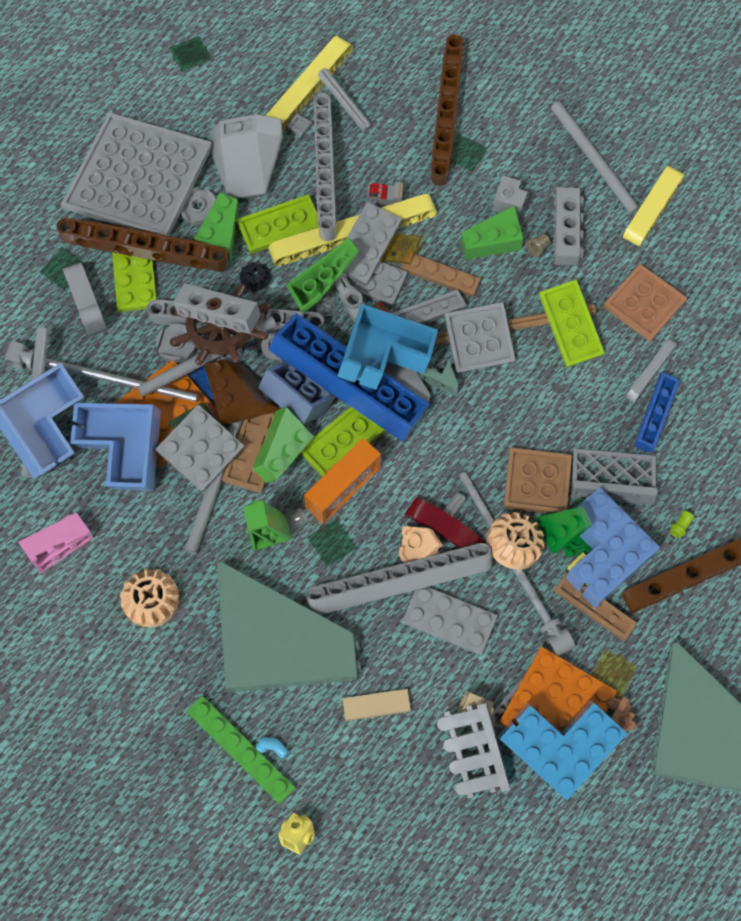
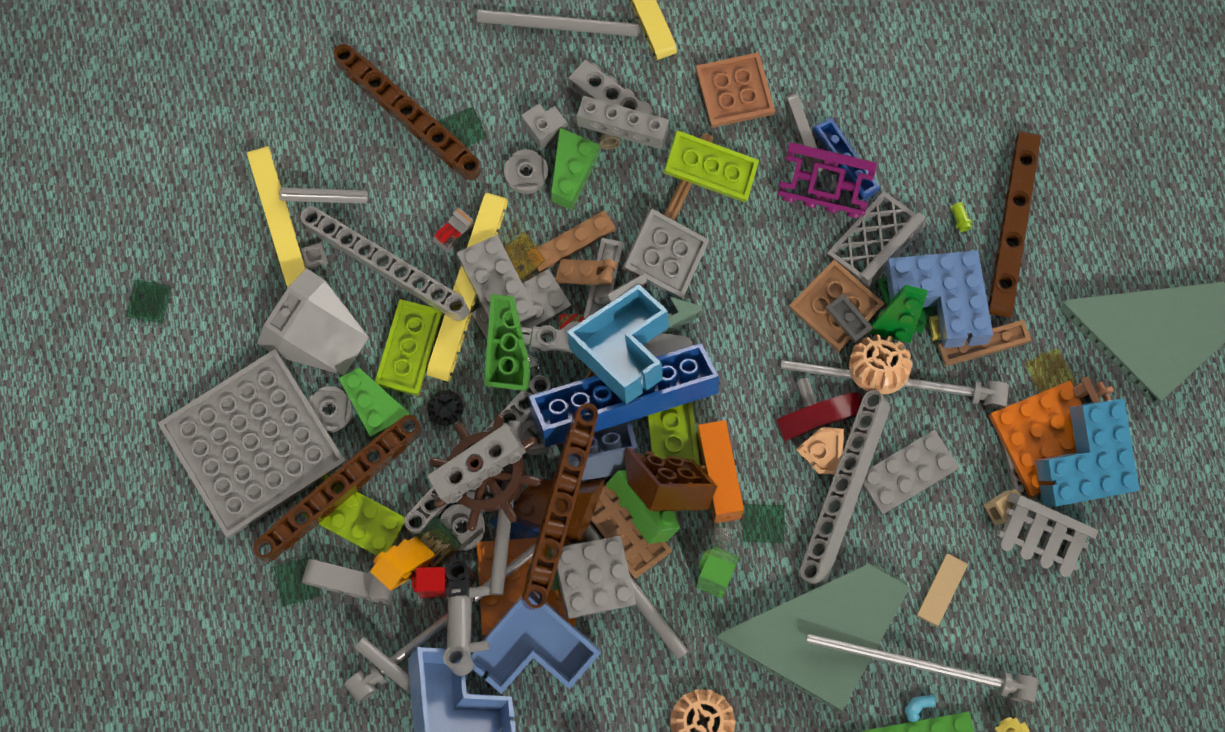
camera: 55 degrees left, 5 degrees up
(117, 317) = (401, 562): none -> light orange brick
(119, 347) = (429, 582): none -> red brick
(121, 368) = (460, 597): none -> light grey piece
(150, 334) = (440, 541): none -> piece
(210, 385) = (556, 523): none -> reddish brown beam
(302, 445) = (668, 482): none -> reddish brown wedge
(341, 815) = (1022, 686): none -> flat silver piece
(422, 294) = (585, 272): none -> medium nougat plate
(442, 331) = (617, 292): none -> light grey tile
(461, 219) = (522, 183): none -> light grey plate
(532, 493) = (849, 318): none -> dark grey plate
(551, 240) = (622, 122): none -> light grey brick
(641, 399) = (831, 163): none -> magenta fence

